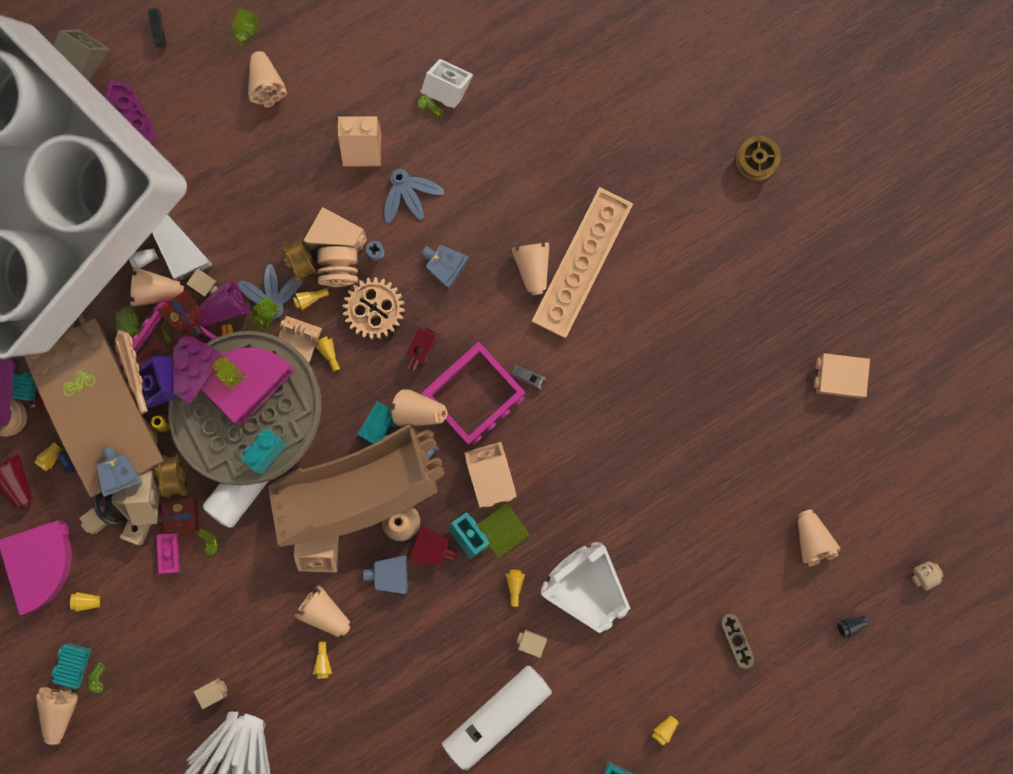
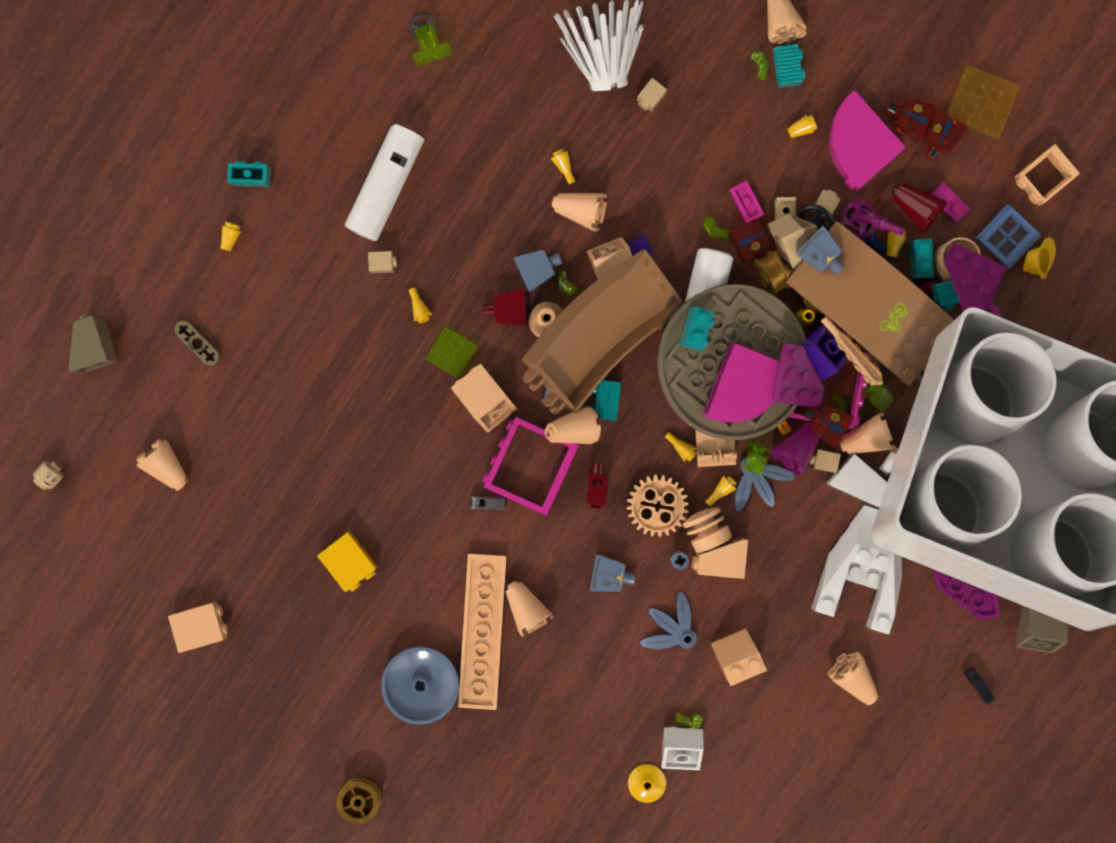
camera: 155 degrees right, 5 degrees up
(31, 430) = (921, 259): none -> teal brick
(60, 488) = (863, 220): none -> magenta dish
(208, 179) = (861, 562): none -> white wedge
(228, 372) = (760, 386): clear neon green brick -> none
(244, 24) = (898, 724): clear neon green brick -> none
(284, 554) = (640, 244): none -> dark purple tile
(299, 258) = (746, 521): pearl gold wheel -> none
(370, 547) = (564, 285): none -> clear neon green arm
(468, 535) = (479, 333): teal brick -> none
(492, 75) = (643, 774): none -> yellow dish
(587, 588) = (352, 333): white cone -> none
(659, 237) = (420, 685): none -> sand blue dish
(679, 376) = (348, 562): none -> yellow brick
(838, 681) = (90, 345): none -> dark tan slope
(851, 626) = (99, 400): black cone -> none

